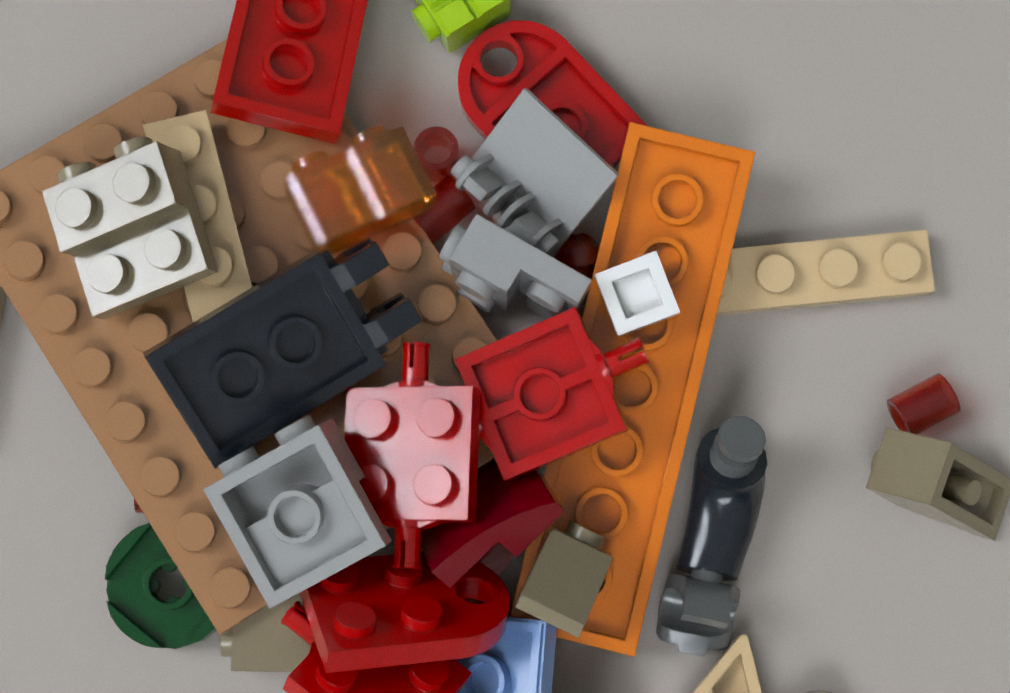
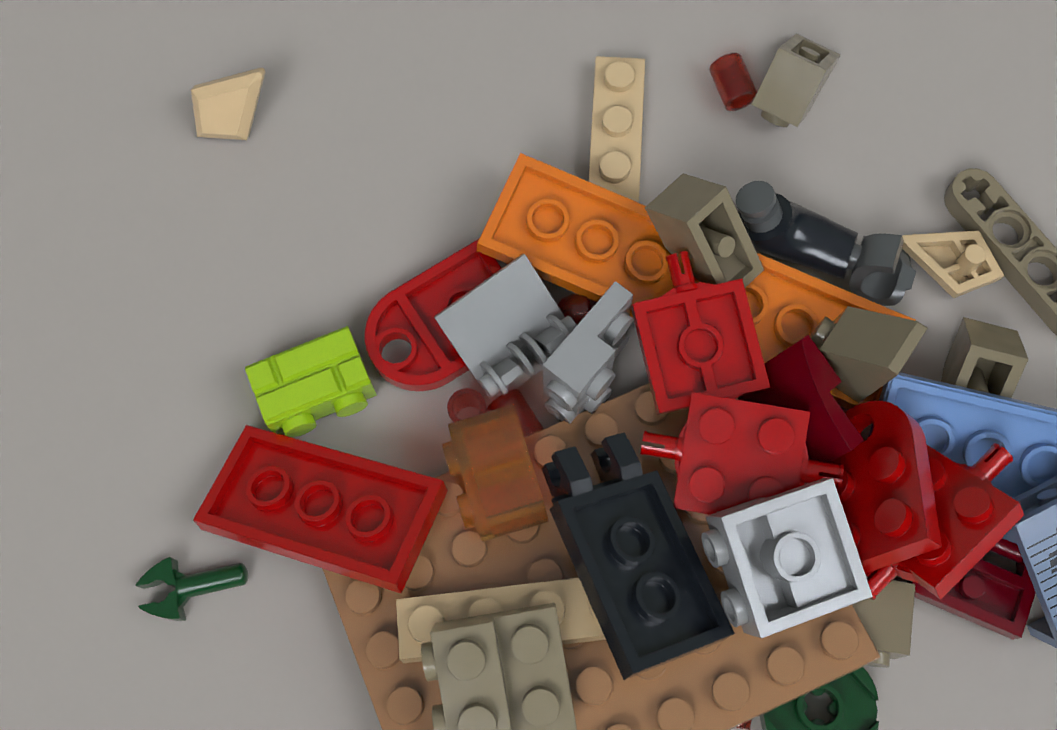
camera: 80 degrees left, 10 degrees down
(637, 294) = (626, 256): white plate -> none
(681, 383) = (705, 222): none -> dark tan slope

